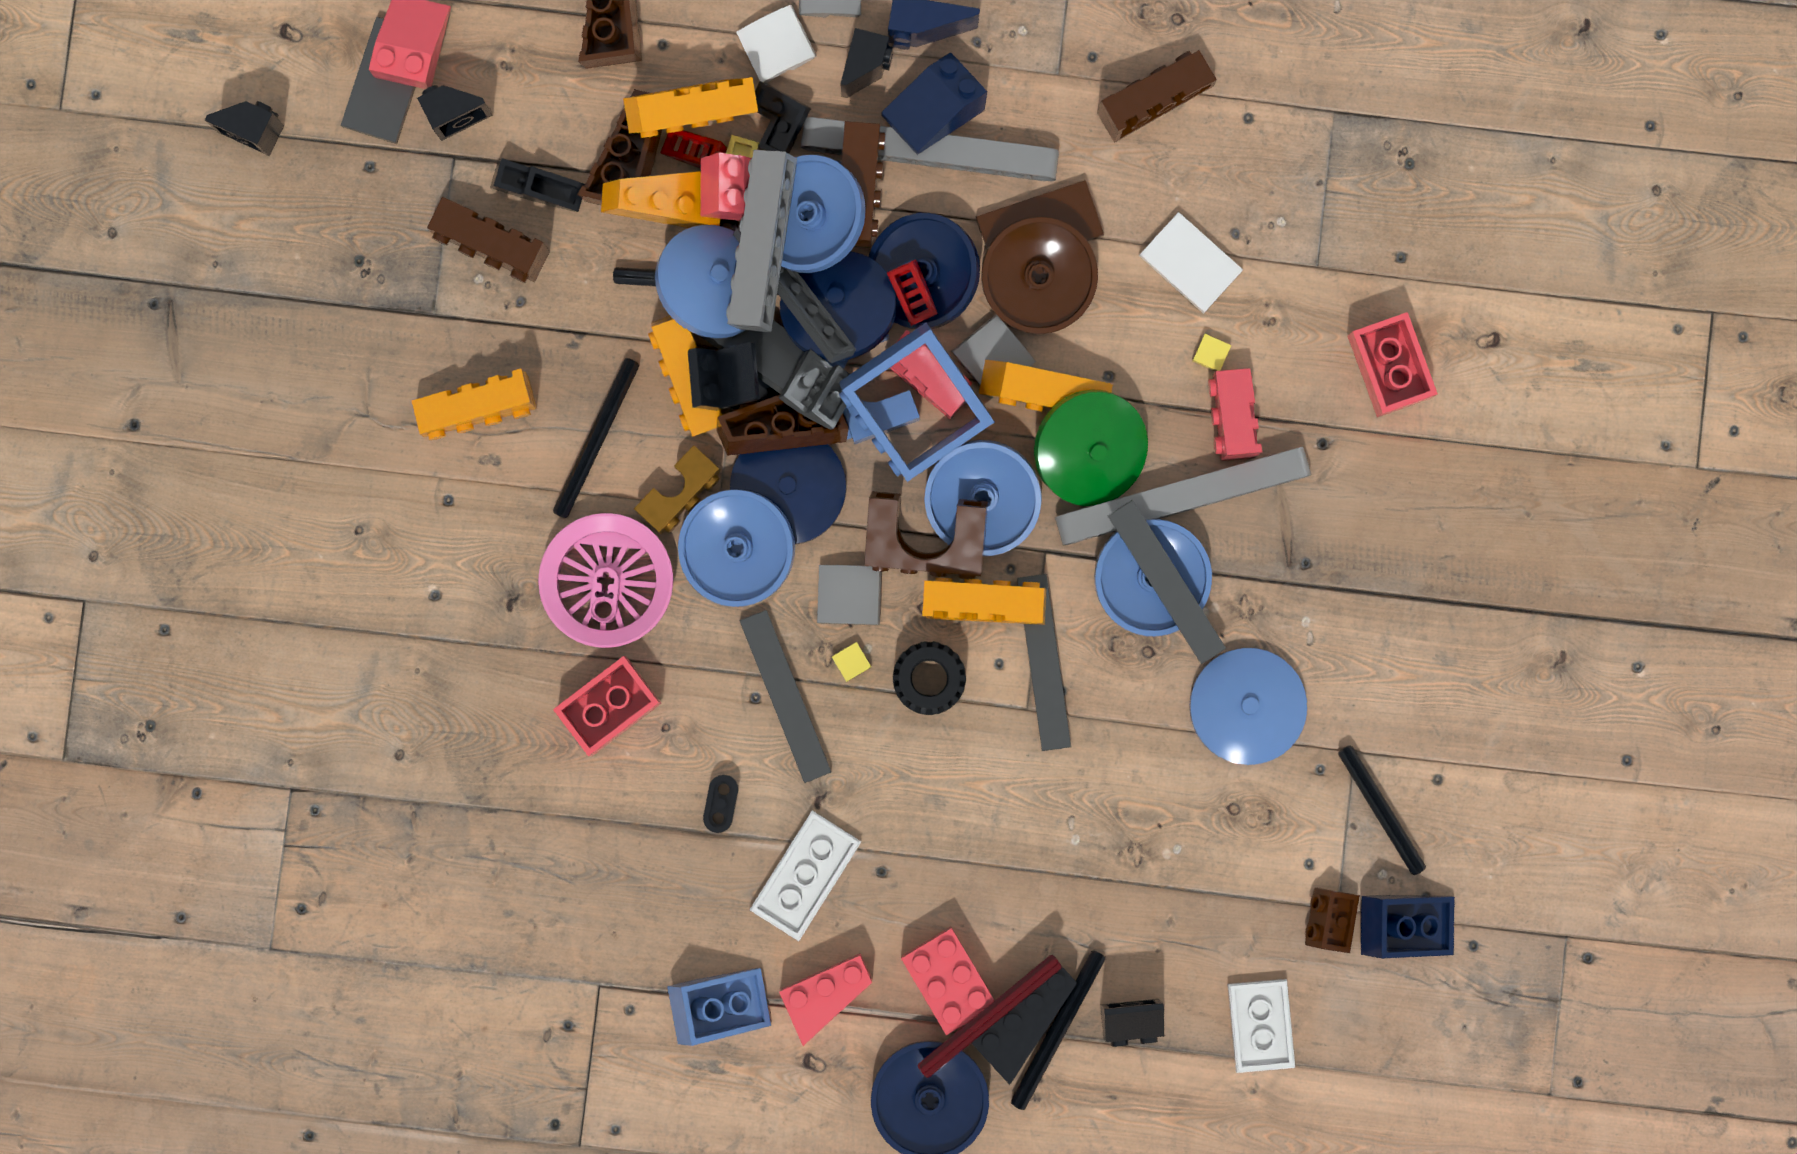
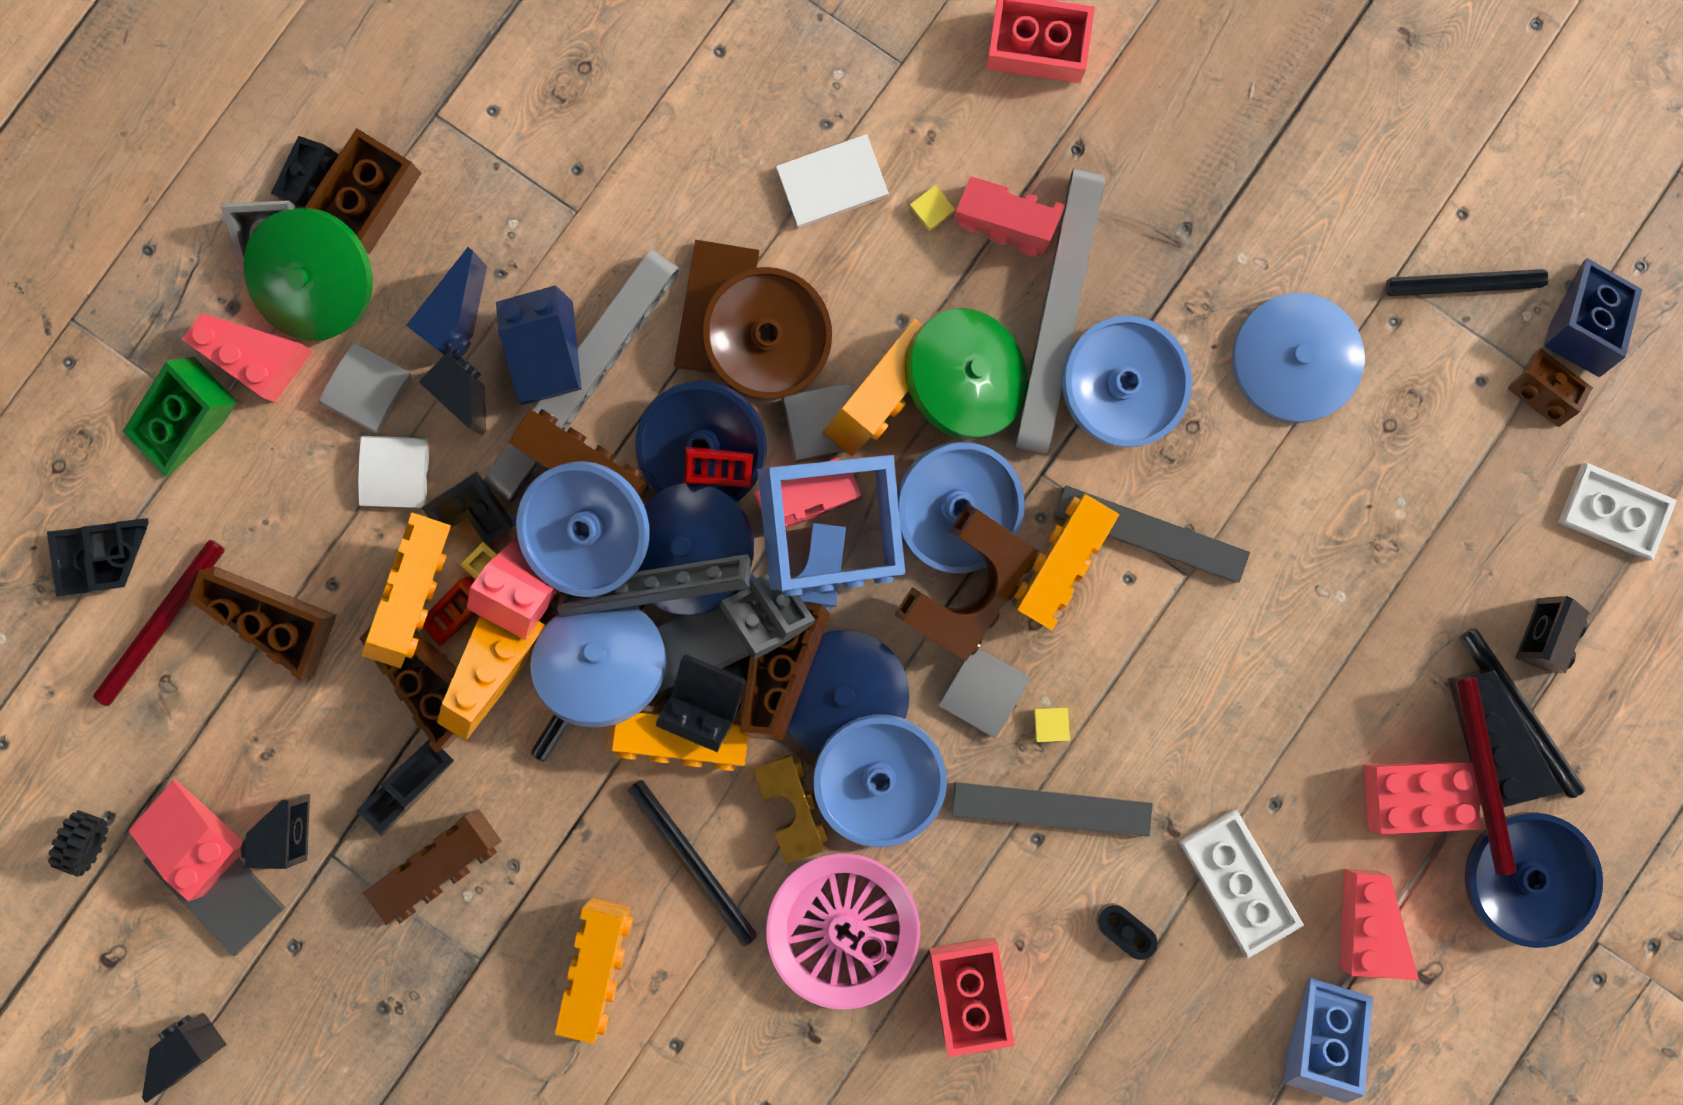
camera: 65 degrees left, 0 degrees up
(761, 240) = (584, 591): light grey brick -> none
(929, 652) = (1139, 656): black tyre -> none
(1155, 95) = (648, 125): reddish brown wedge -> none
(1166, 581) = (1140, 370): dark grey tile -> none

